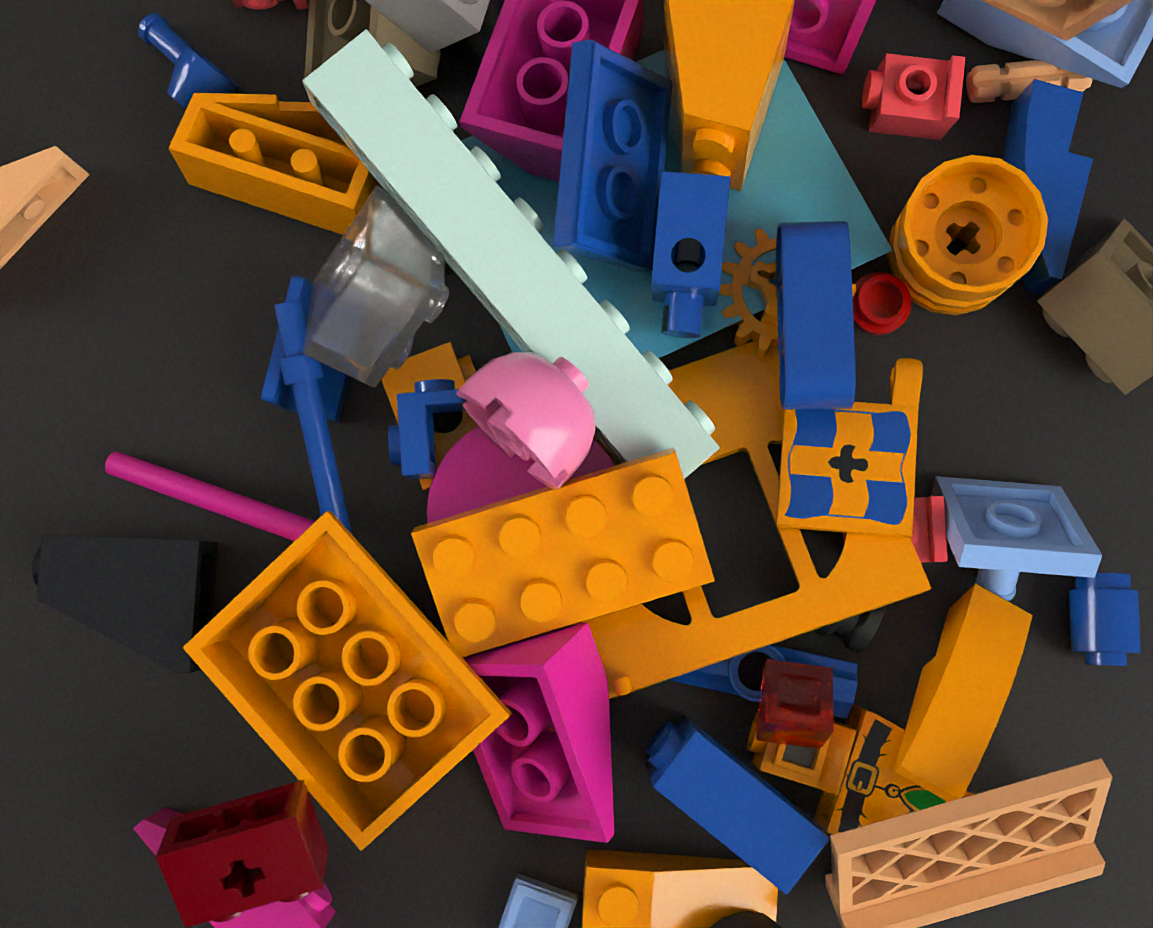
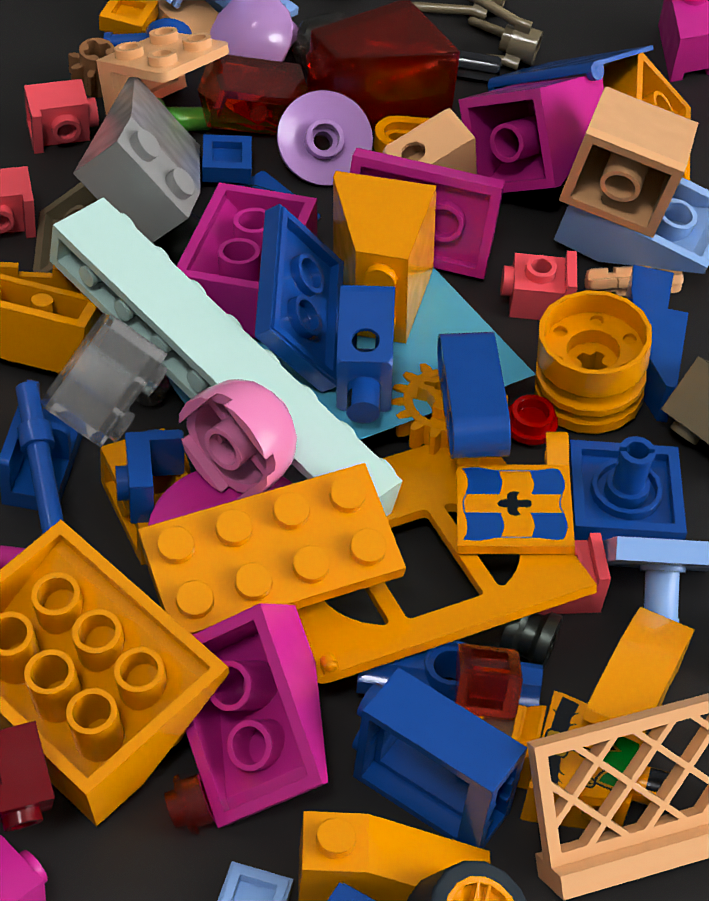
camera: 10 degrees left, 35 degrees down
(473, 812) = (189, 803): none -> clear red plate
(982, 412) = (626, 489): none -> blue plate

